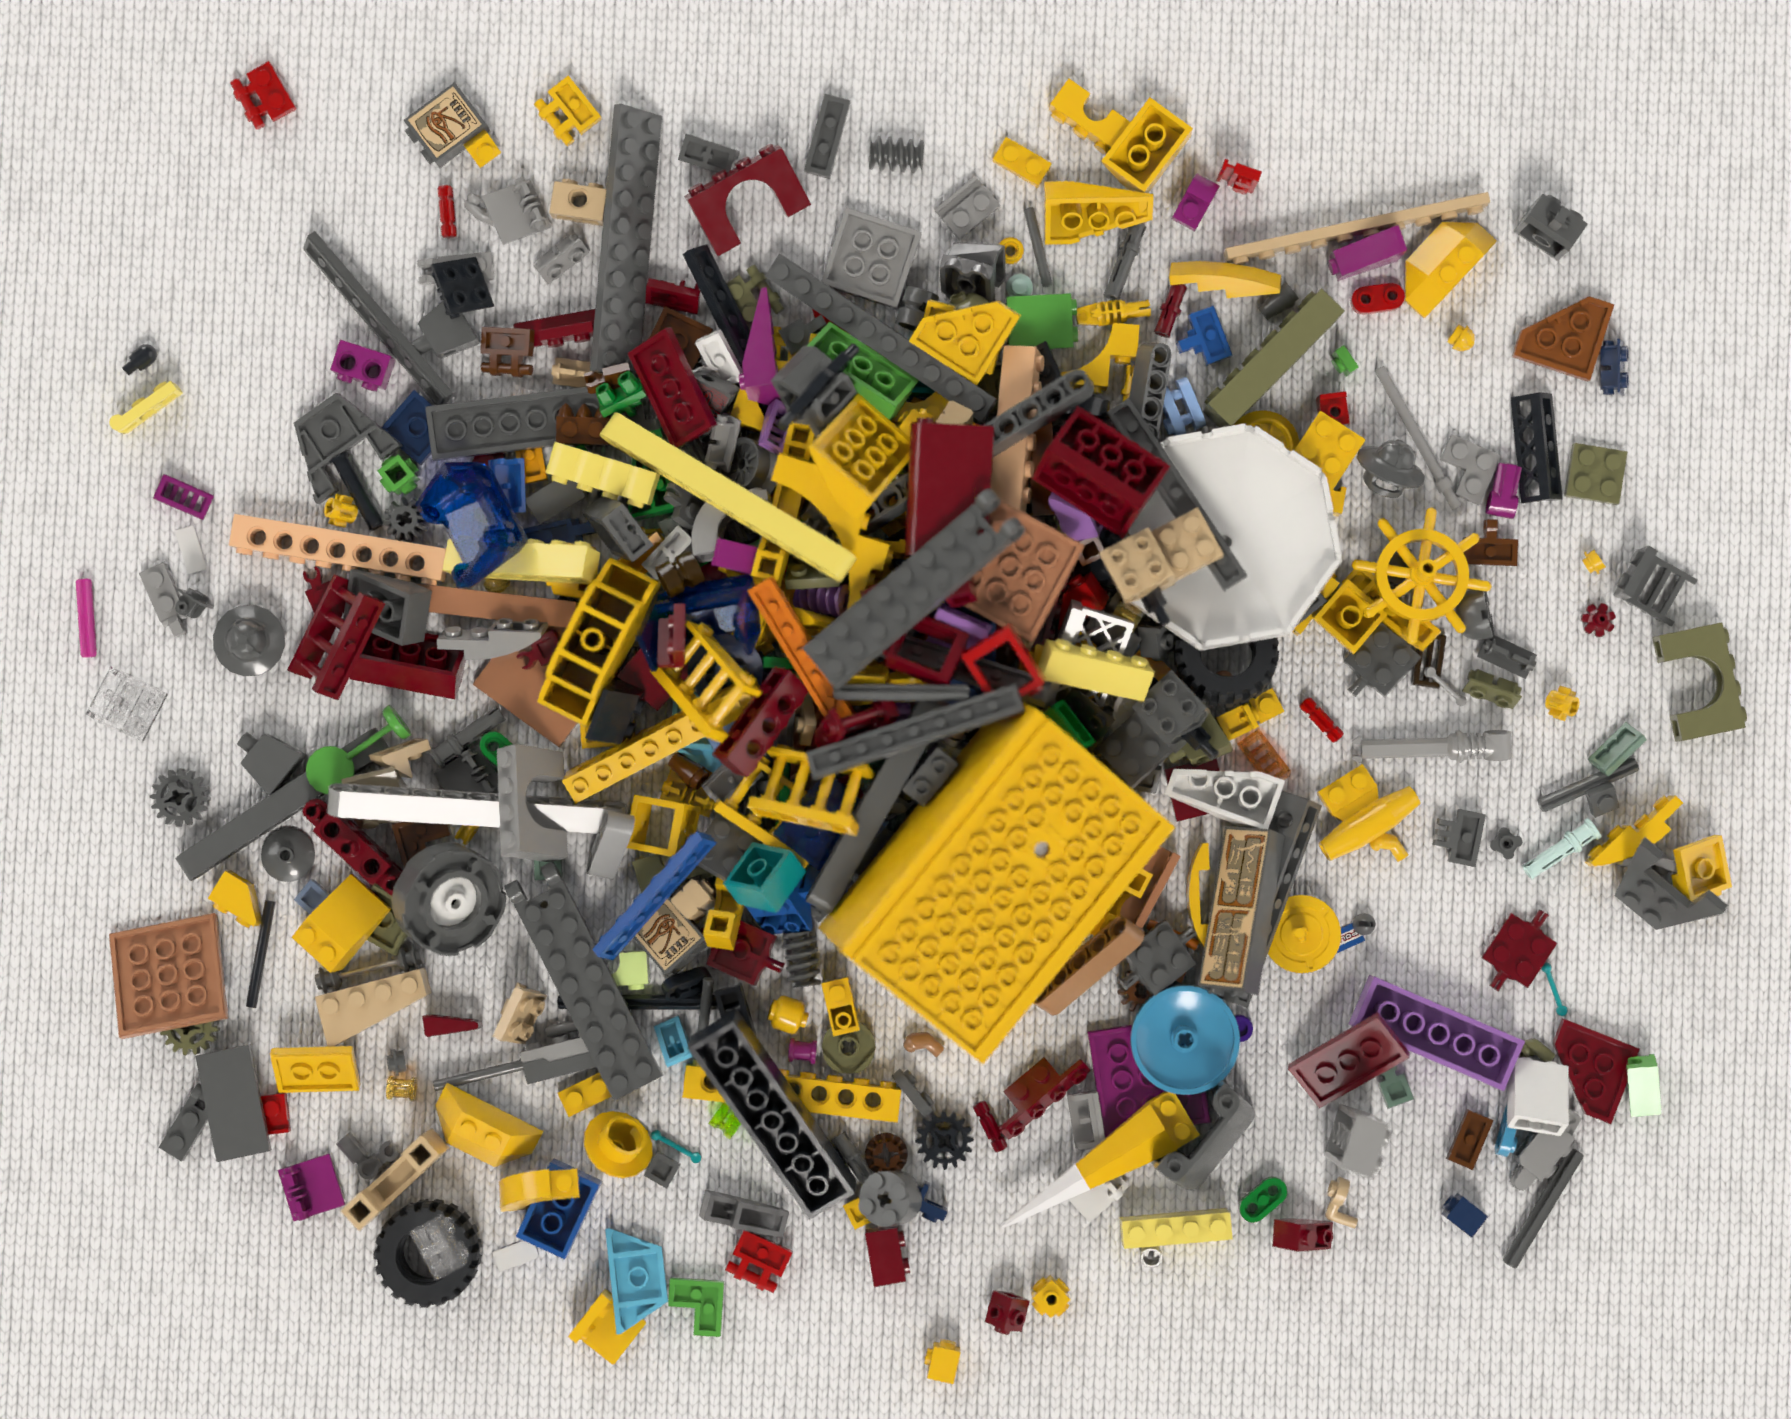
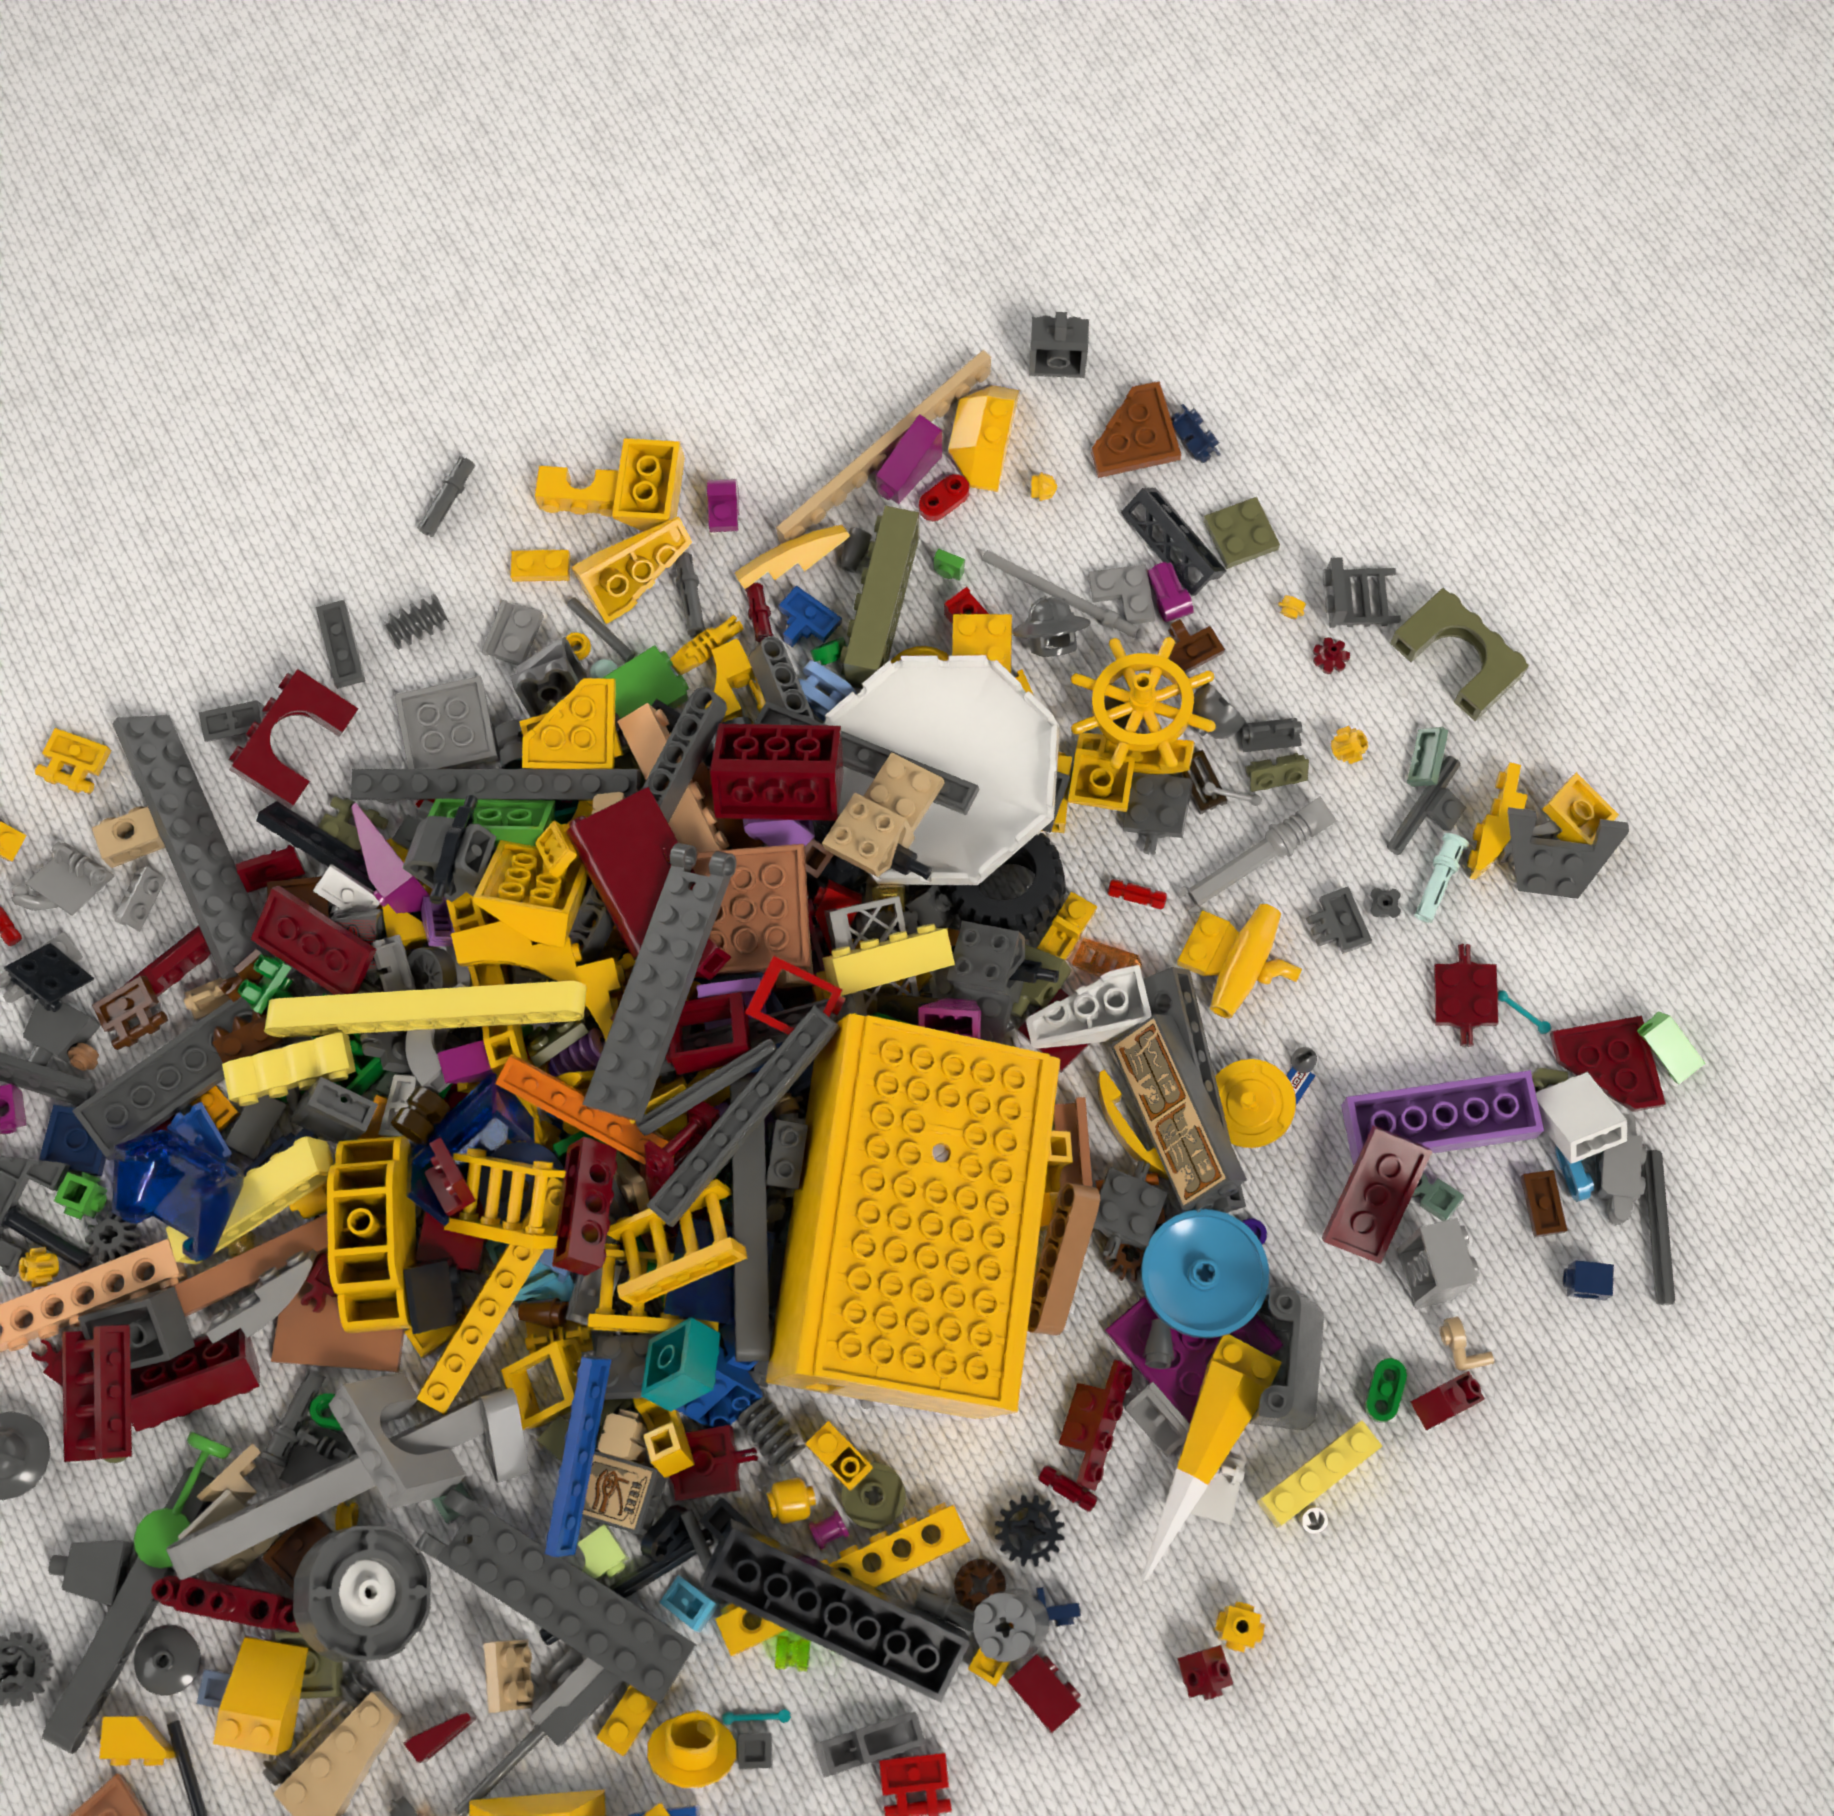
camera: 35 degrees left, 15 degrees down
(454, 364) = (83, 1057): none -> medium nougat plate
(895, 431) = (555, 849): none -> yellow plate
(921, 1100) = (981, 1505): dark grey plate -> none
(923, 1040) = (944, 1443): medium nougat arm -> none
(942, 1361) = (1172, 1770): yellow brick -> none
(980, 56) = (442, 503): none -> dark grey pin
(1114, 746) = (952, 1016): none -> magenta slope
(1118, 1069) = (1159, 1346): none -> dark grey cone
(1205, 379) = (828, 651): none -> green plate
(1240, 177) = (749, 460): red plate -> none

